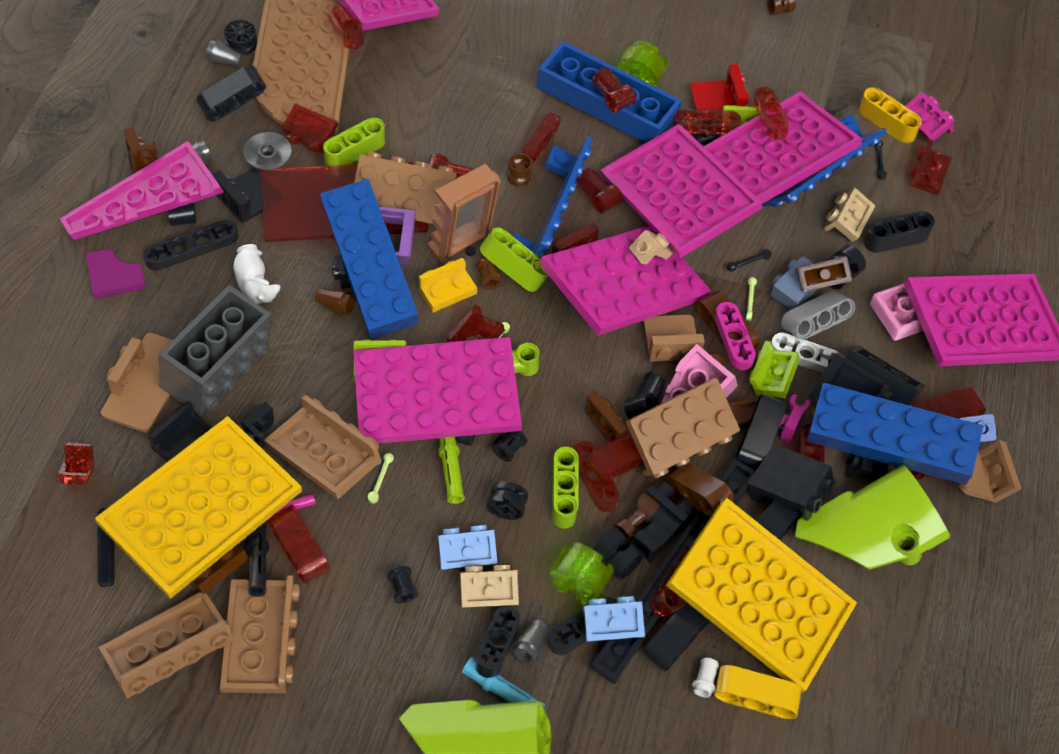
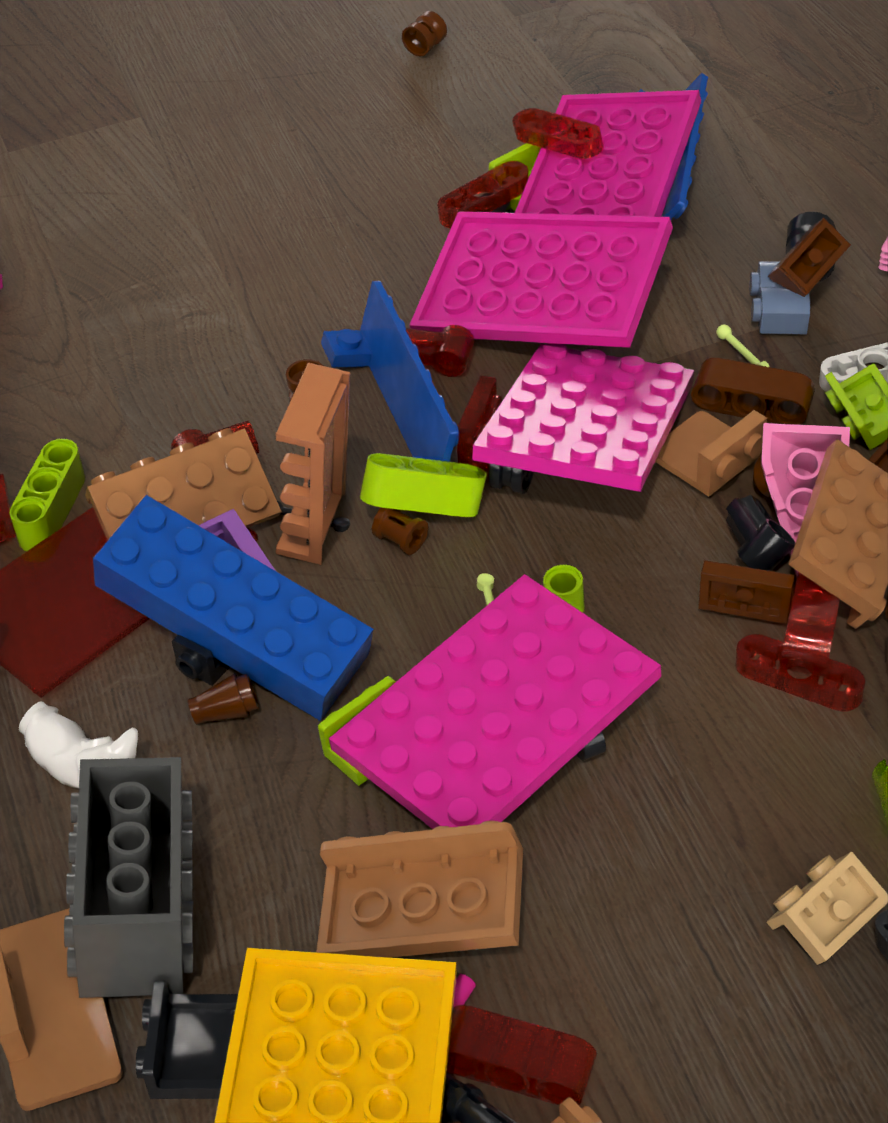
camera: 30 degrees left, 10 degrees down
(258, 421) = (284, 928): black bracket -> none
(373, 496) = (544, 913): yellowish green hinge -> none
(402, 584) = (717, 995): black bush -> none
(446, 285) = (359, 578): yellow bracket -> none
(449, 453) = (648, 822): lime pin -> none
(468, 548) = (747, 879): light blue bracket -> none
(475, 327) = (456, 602): clear red bracket -> none
(506, 501) = (735, 778): black wheel -> none
(516, 439) = (656, 712): black bush -> none
(542, 136) = (293, 329): clear red beam -> none
(565, 498) = (784, 710): lime beam -> none
(570, 75) = (329, 236): blue brick -> none
(616, 94) = (356, 219): clear red piece -> none
(643, 62) = (339, 184): clear neon green brick -> none
(649, 245) = (582, 357): tan bracket -> none
(721, 93) = (467, 157): red bracket -> none
(733, 346) = (813, 403): dark pink beam -> none
(766, 254) = (704, 294): black hinge -> none
(818, 314) = (844, 313): light grey beam -> none
(850, 214) = (747, 191): tan bracket -> none
(881, 173) = (732, 136): black hinge -> none
(890, 114) = (674, 69): yellow beam -> none
(899, 231) = (825, 174): black beam -> none
(931, 170) = (779, 99): clear red bracket -> none
(934, 120) = (718, 49): dark pink bracket -> none

